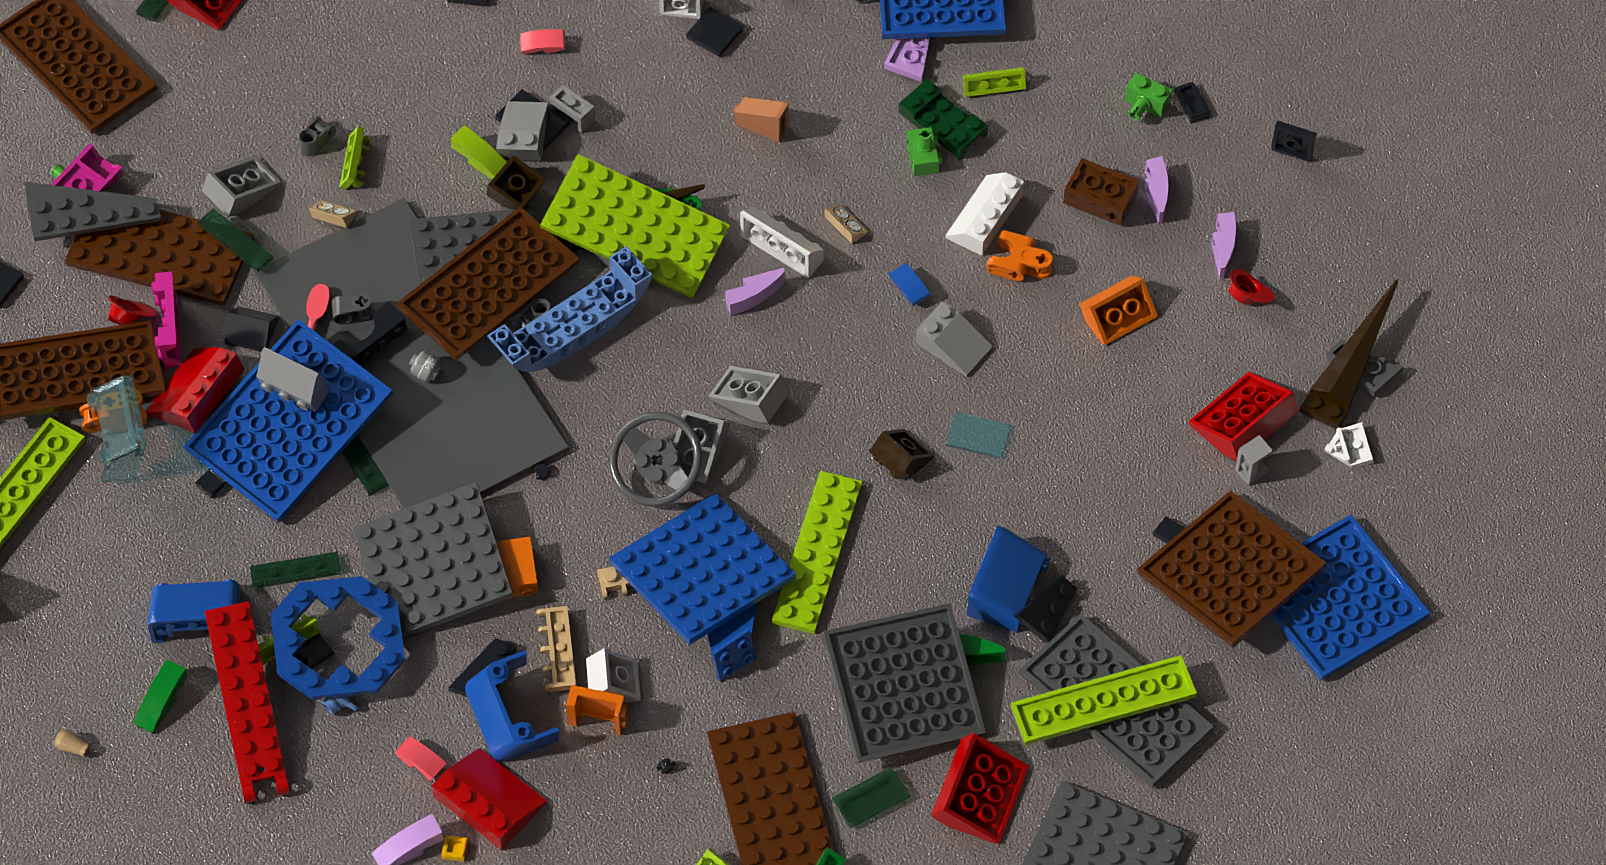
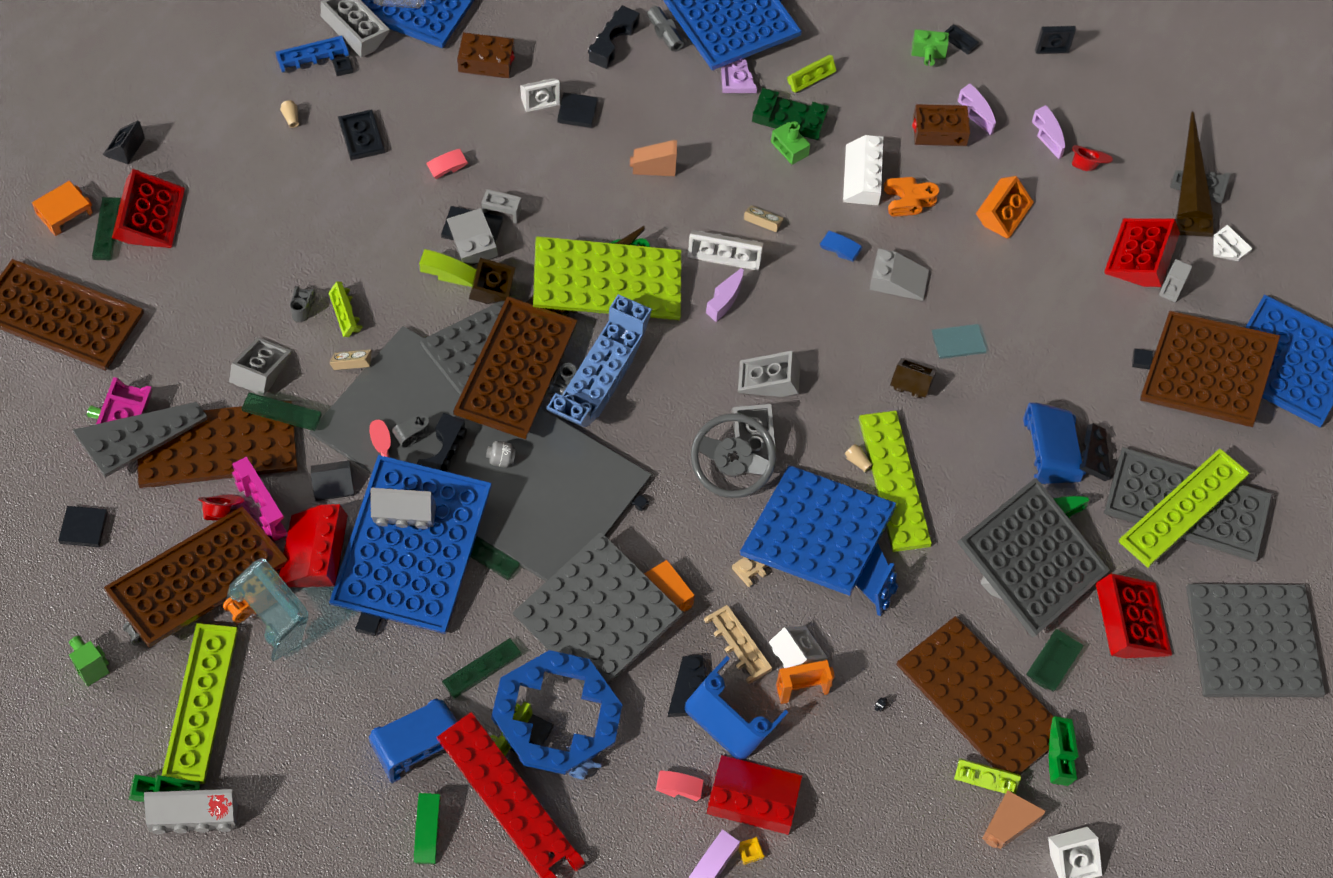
camera: 30 degrees left, 0 degrees up
(791, 512) = (858, 457): none -> tan cone

